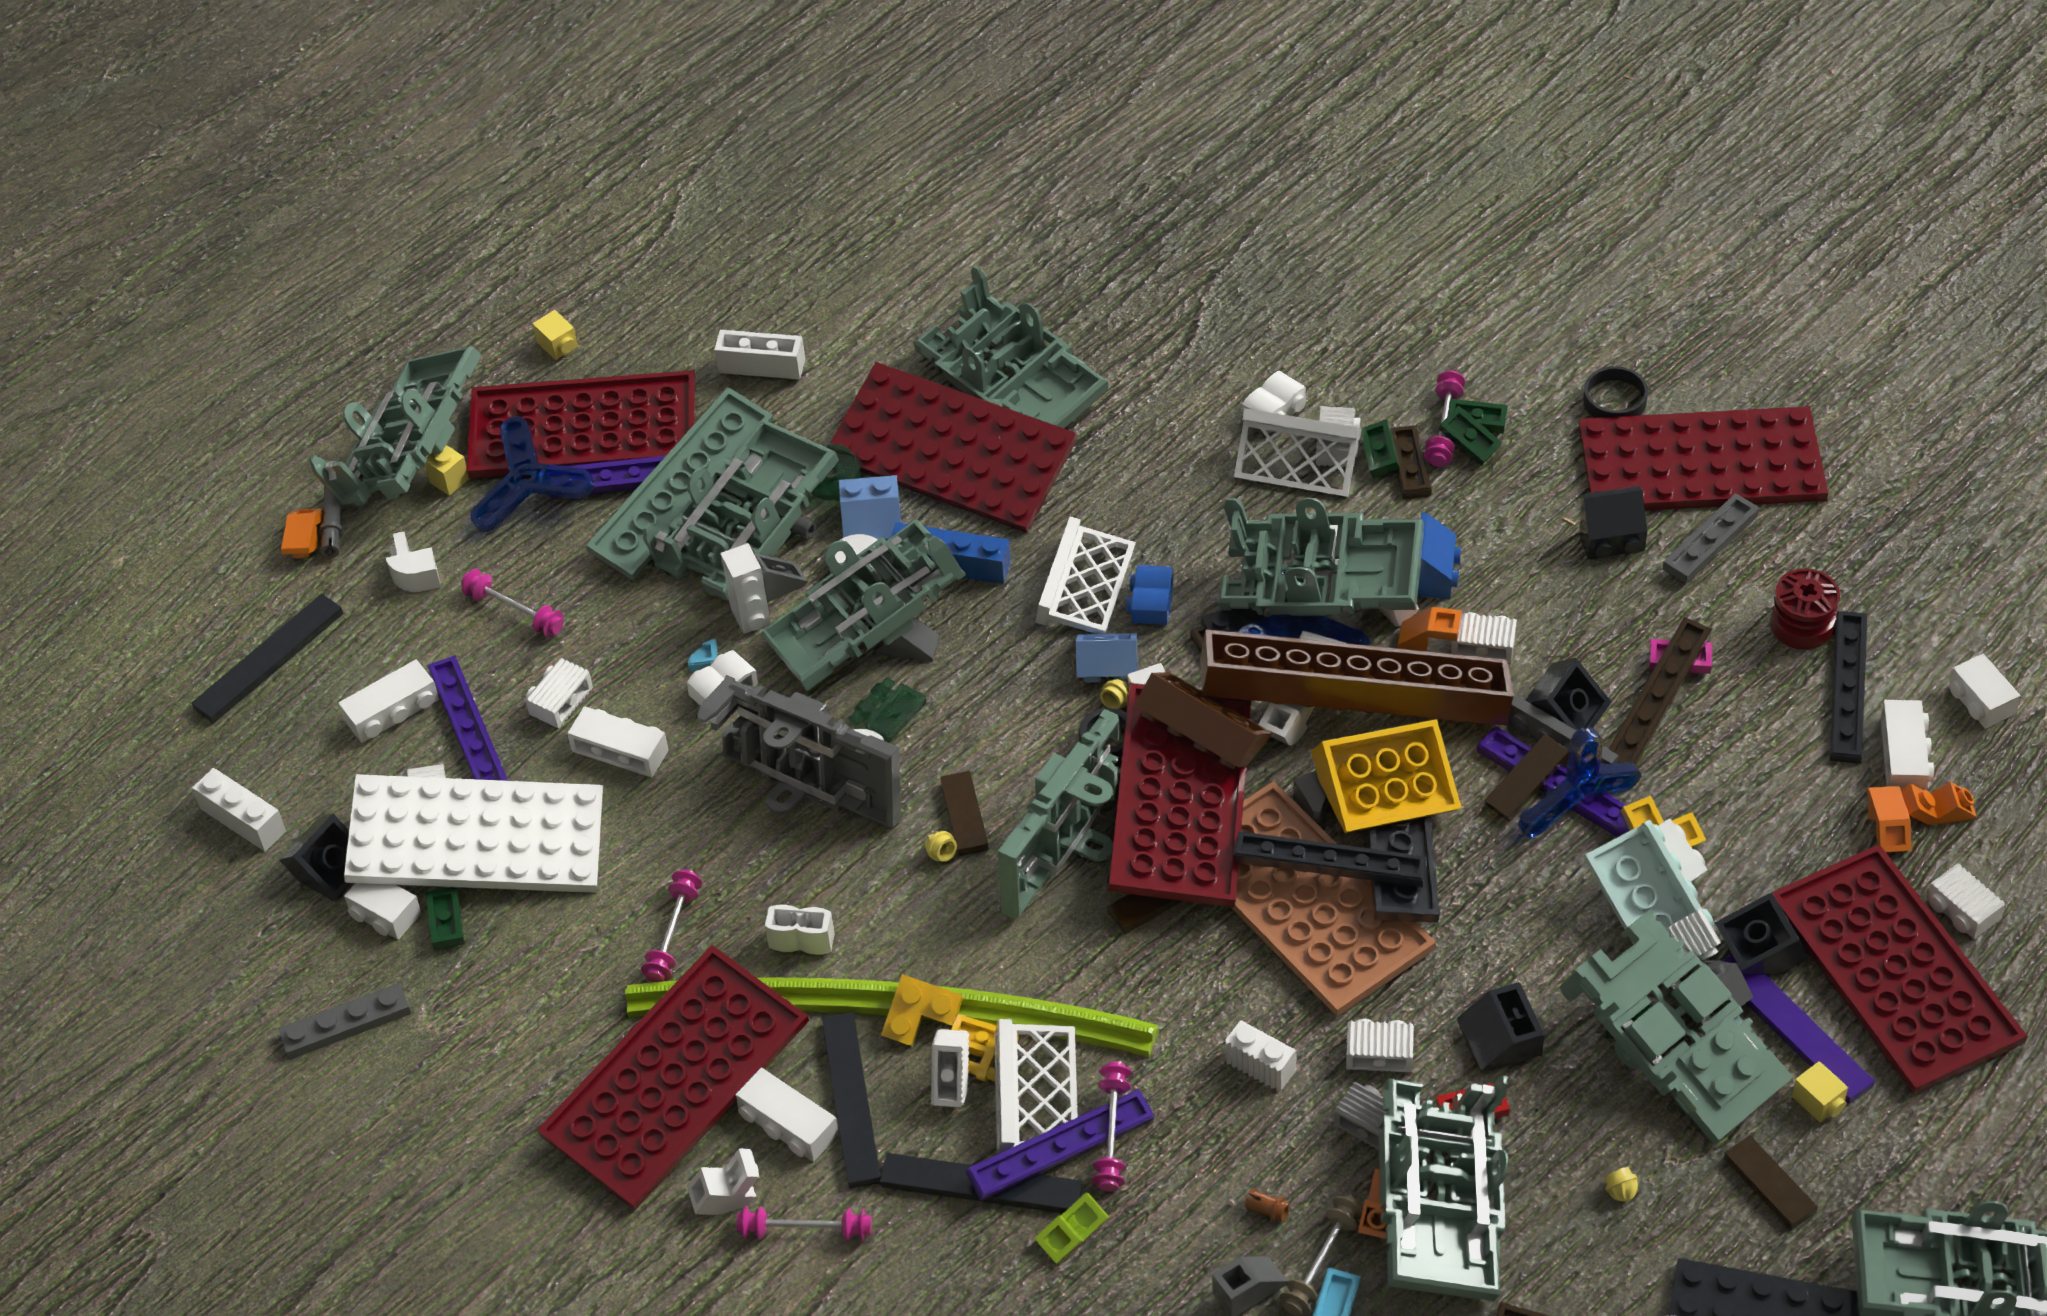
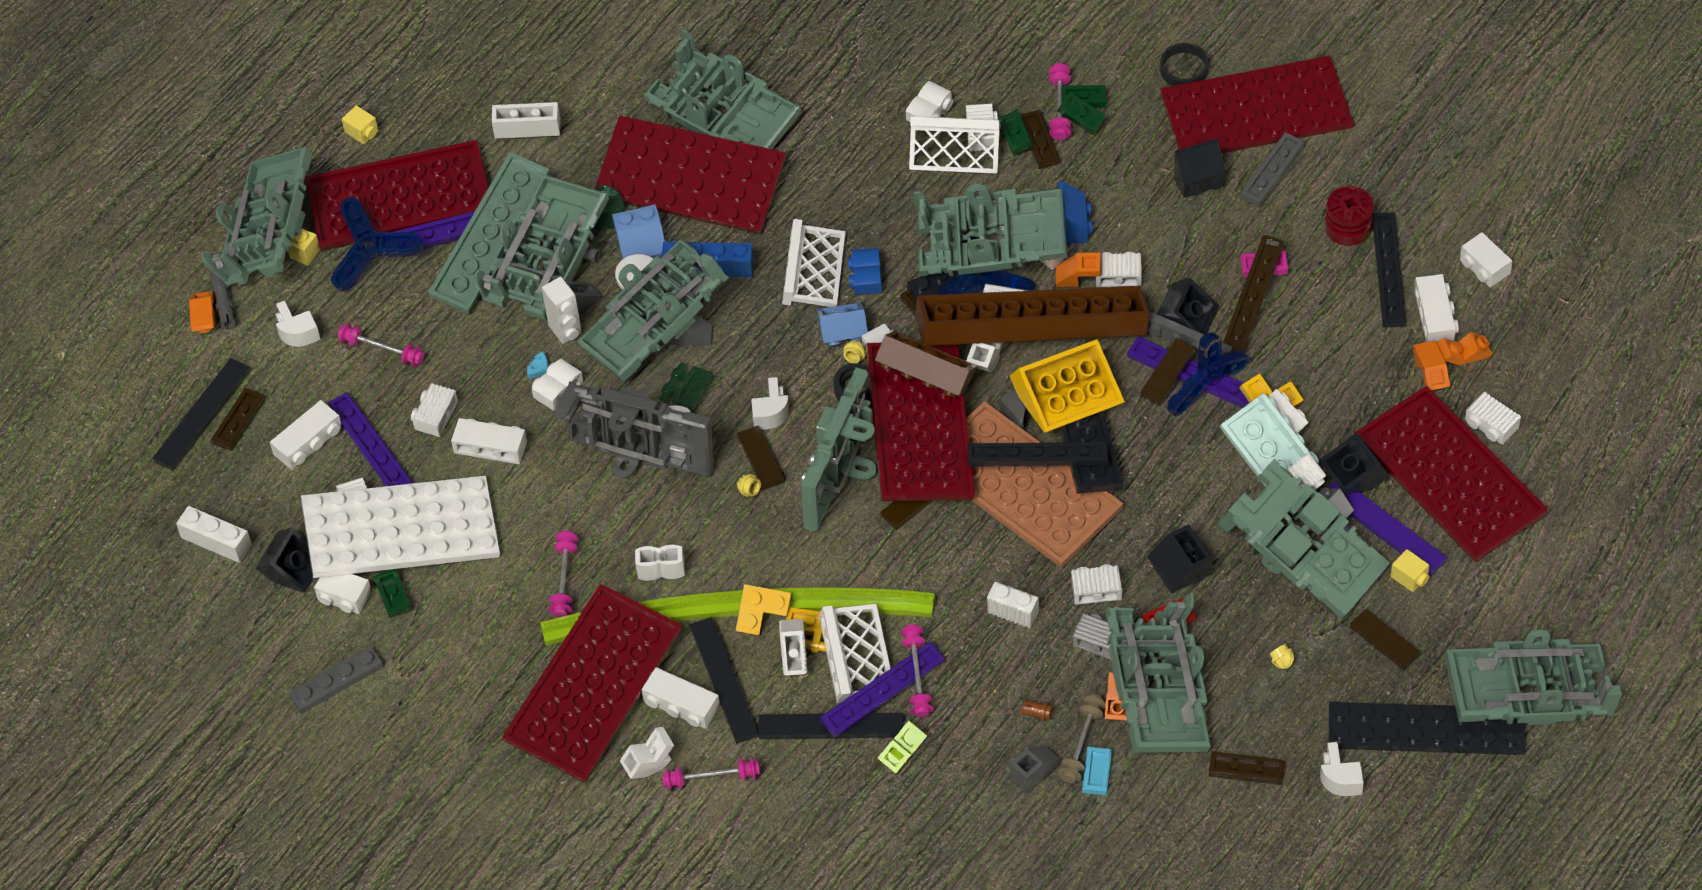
camera: 10 degrees left, 5 degrees up
(311, 670) = (238, 419): none -> dark brown tile
(990, 754) = (771, 410): none -> white brick

